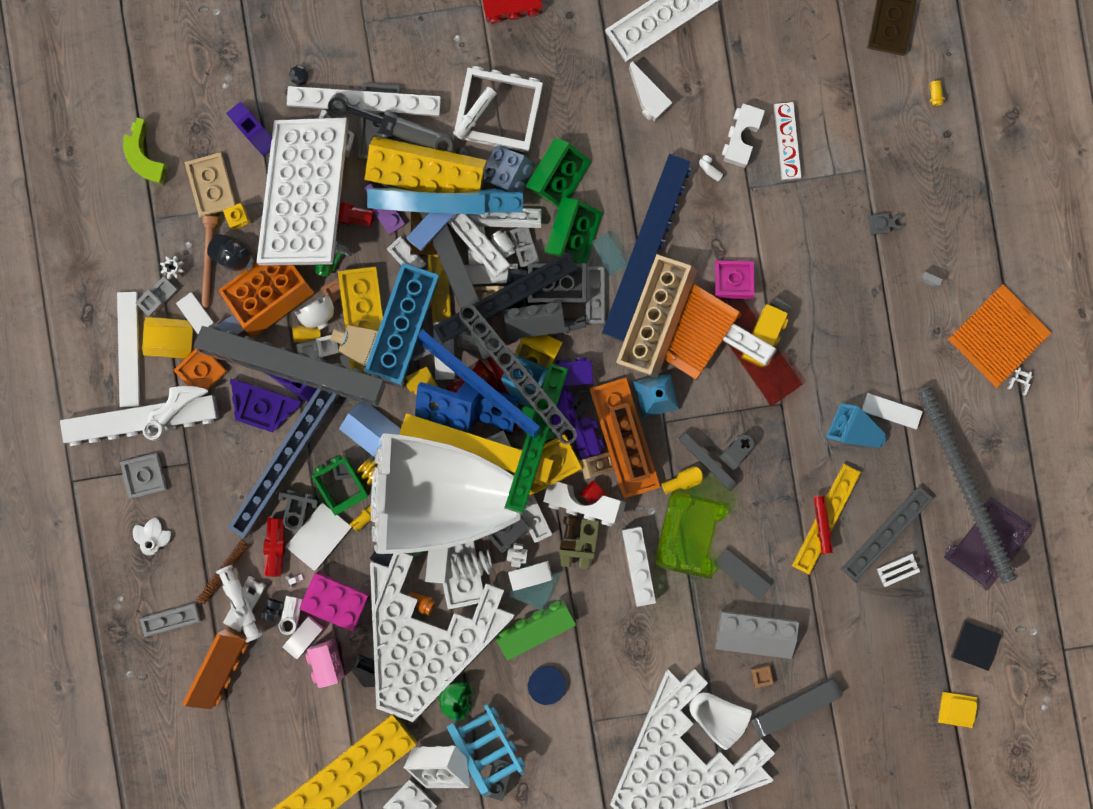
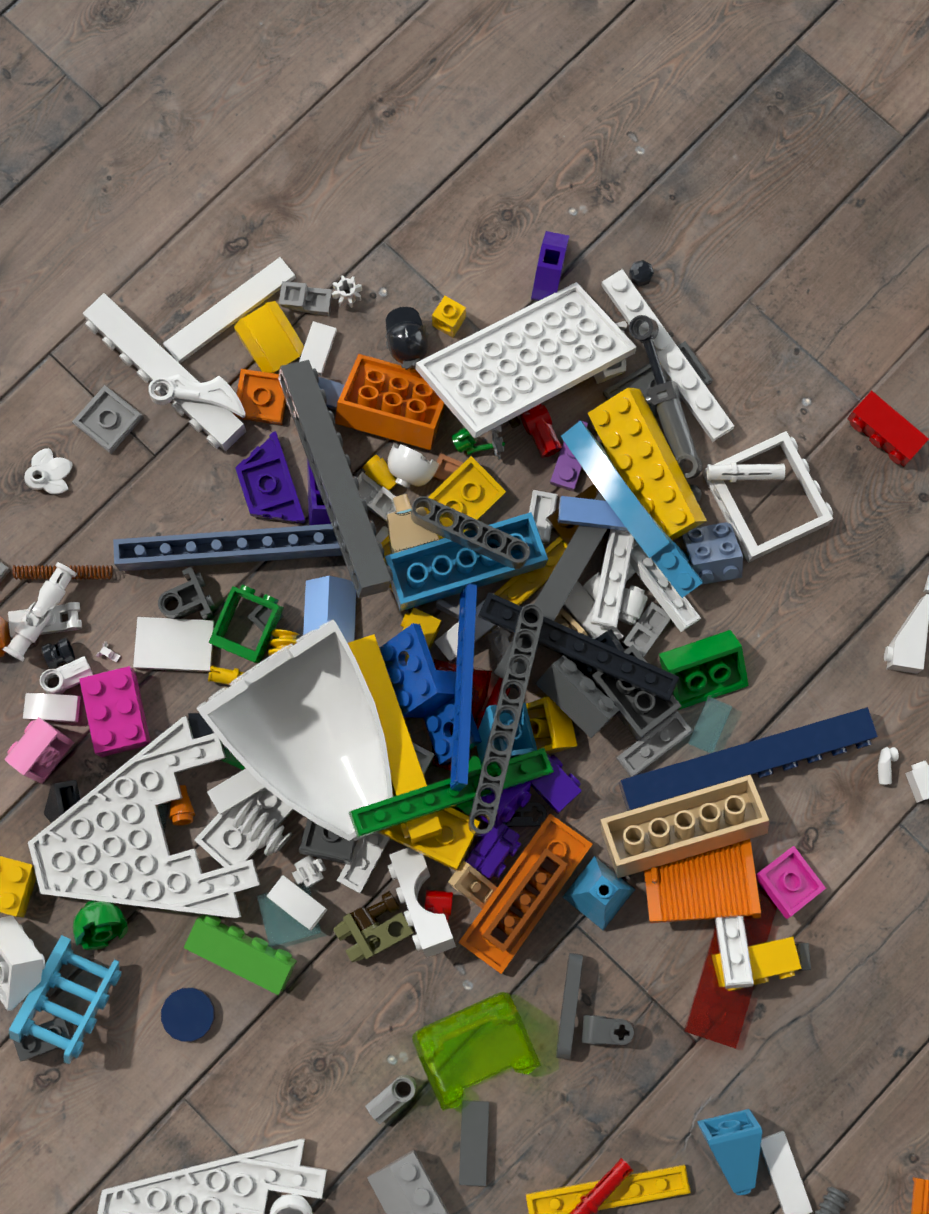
camera: 50 degrees right, 10 degrees down
(135, 155) = (434, 174): lime arch -> none
(210, 184) = (461, 268): tan tile -> none
(210, 224) = (420, 296): nougat piece -> none
(274, 547) = (127, 606): red piece -> none
(381, 318) = (460, 523): none -> dark grey beam
(558, 172) = (753, 606): green slope -> none
(573, 324) = (603, 742): dark grey pin -> none
(638, 566) = (395, 1016): white brick -> none
(682, 604) = (390, 1100): none -> light grey piece
(685, 479) = (530, 995): yellow arm -> none

